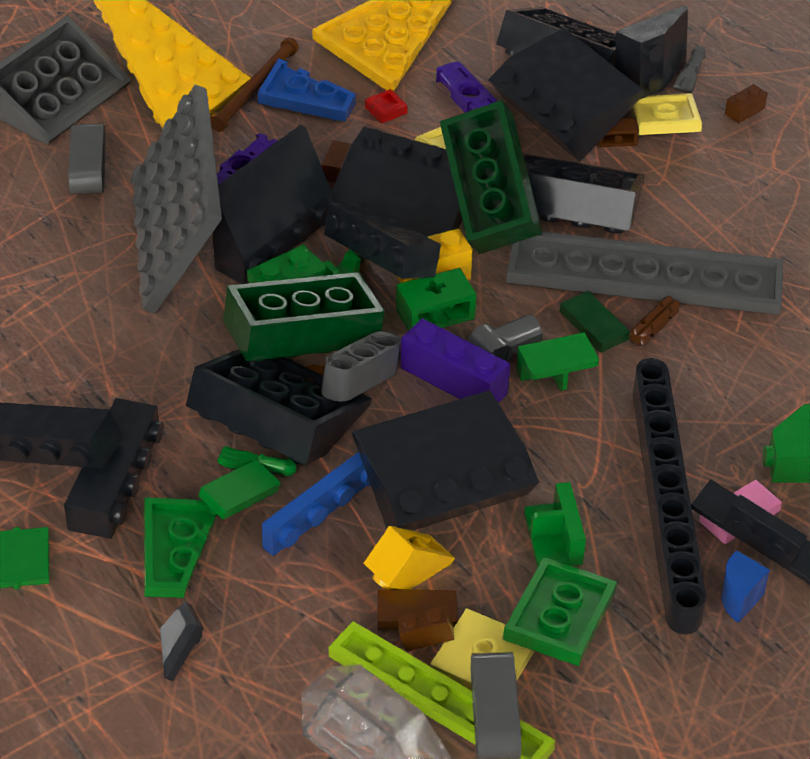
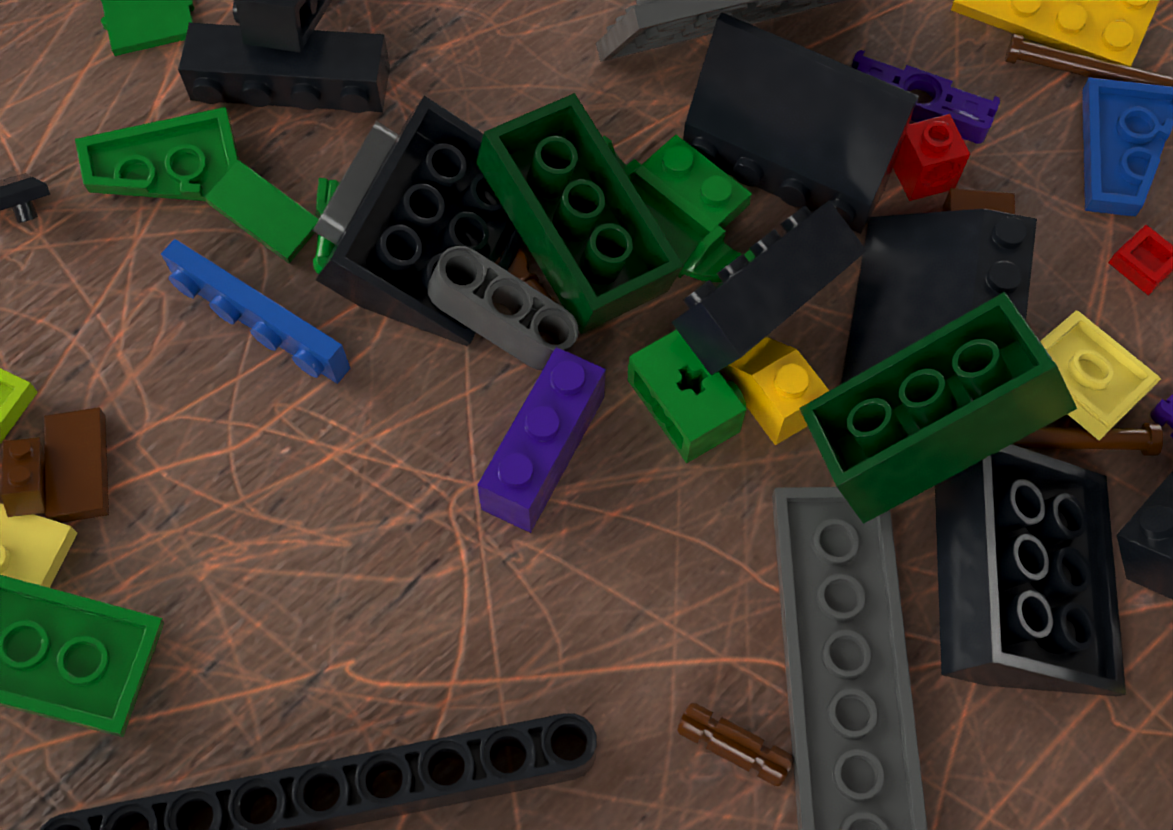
camera: 80 degrees right, 20 degrees up
(249, 427) = (355, 183): none -> dark grey beam
(406, 559) = (153, 437): yellow slope -> none
(444, 462) = (310, 449): black slope -> none
(506, 338) = (614, 495): dark grey piece -> none
(556, 358) = (579, 588): green panel -> none
(557, 528) = (234, 634): green panel -> none
(595, 320) = (711, 644): dark green tile -> none

